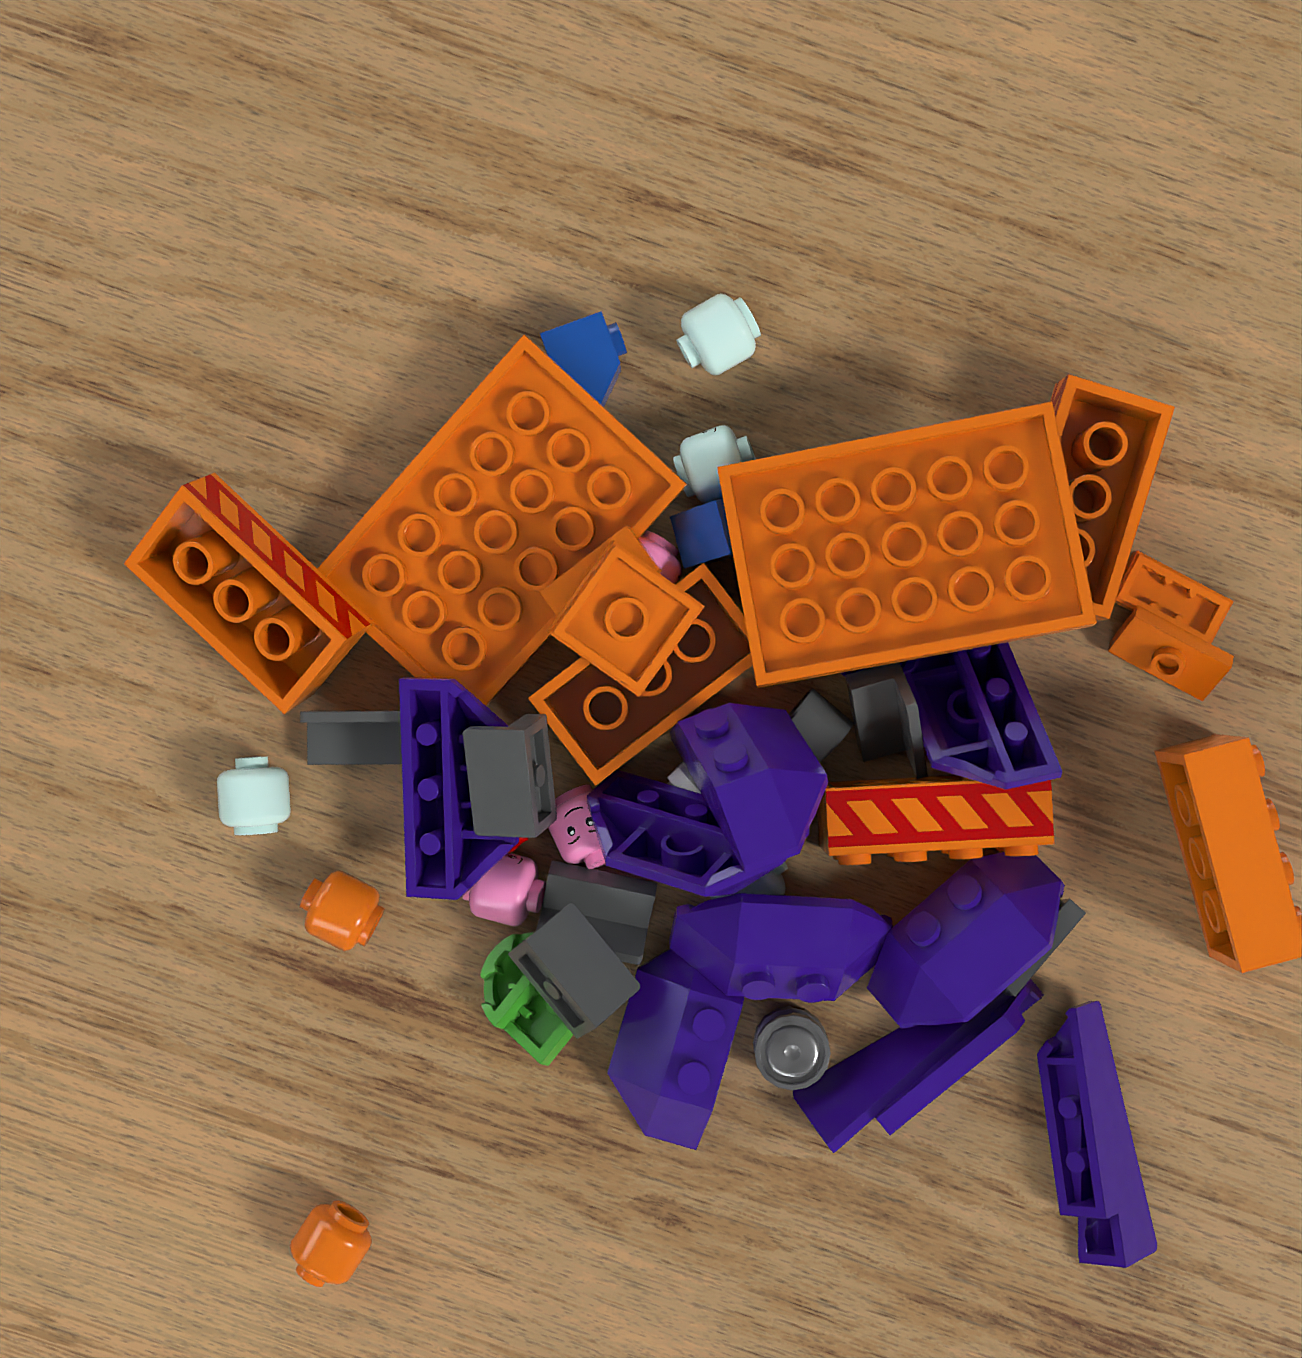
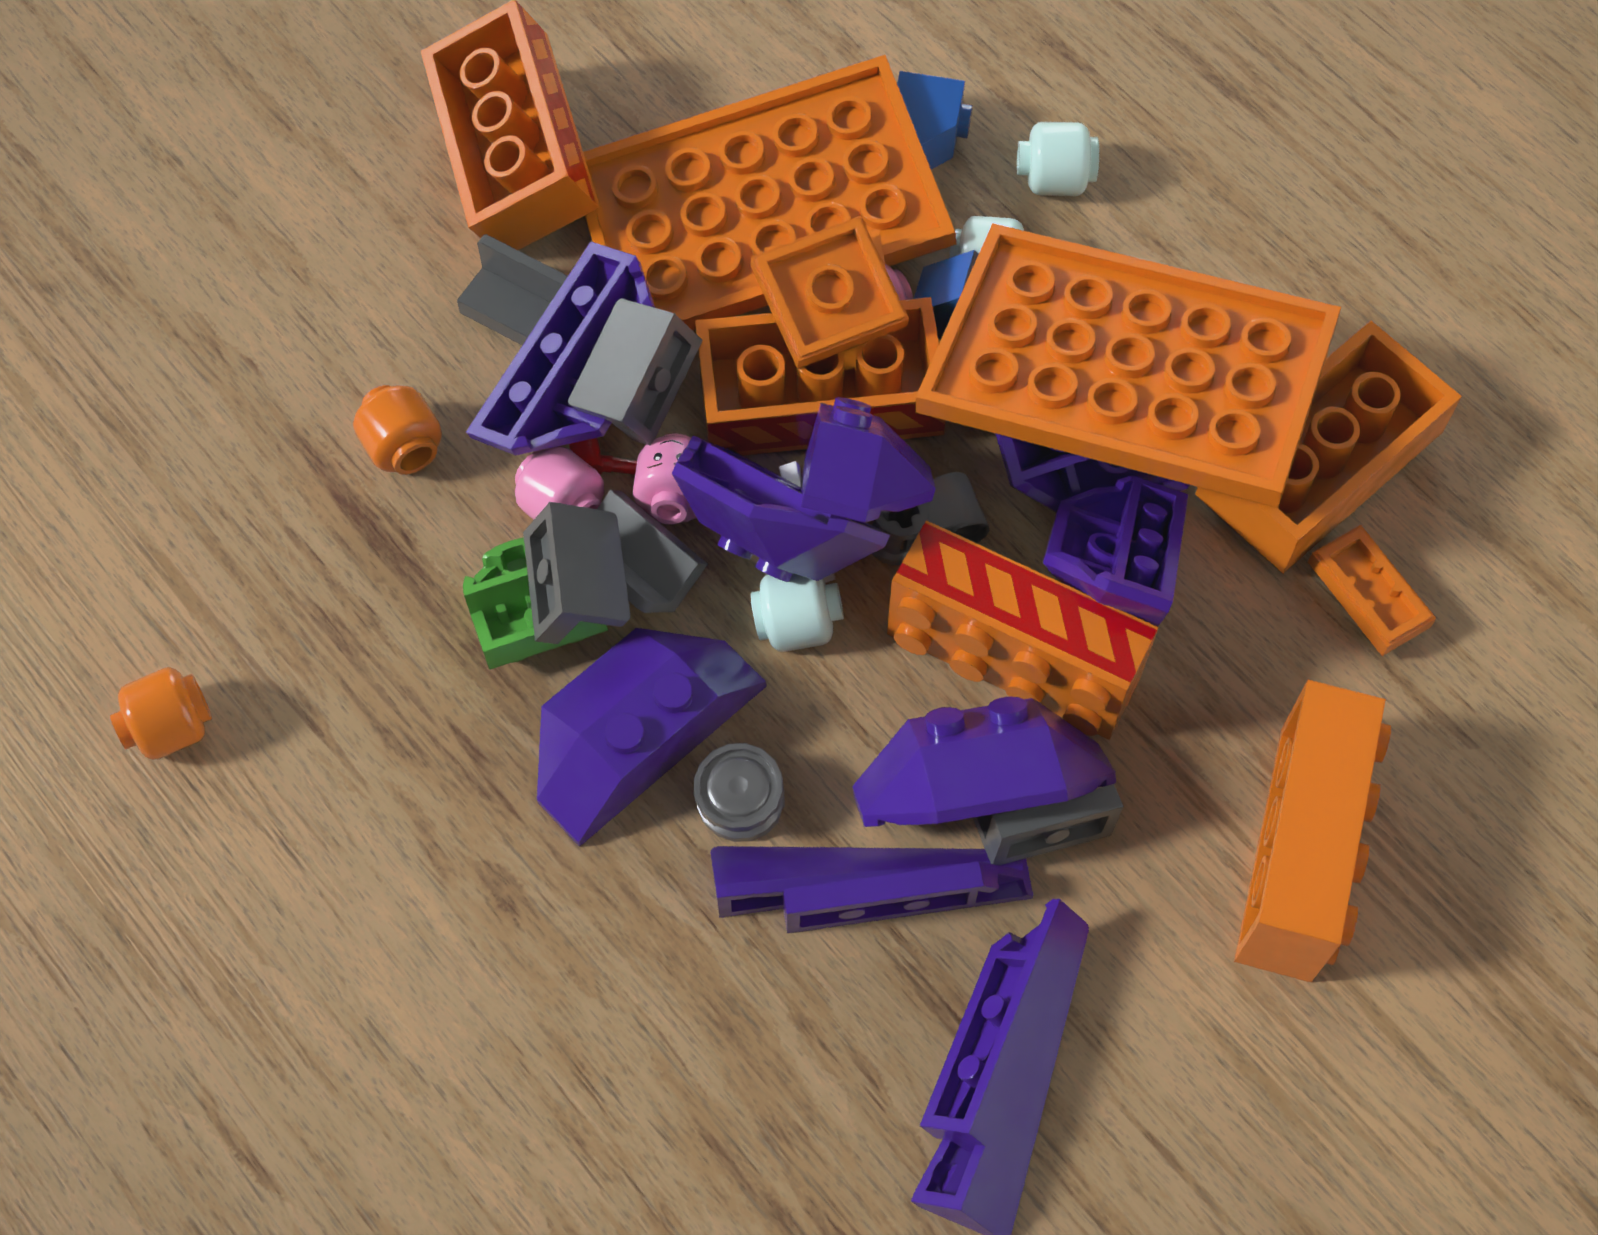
camera: 30 degrees right, 25 degrees down
(253, 796) = (390, 296): light aqua head -> none
(780, 944) = (800, 662): dark purple wedge -> none
(886, 715) = (1024, 510): dark grey panel -> none
(1170, 653) = (1345, 633): orange plate -> none

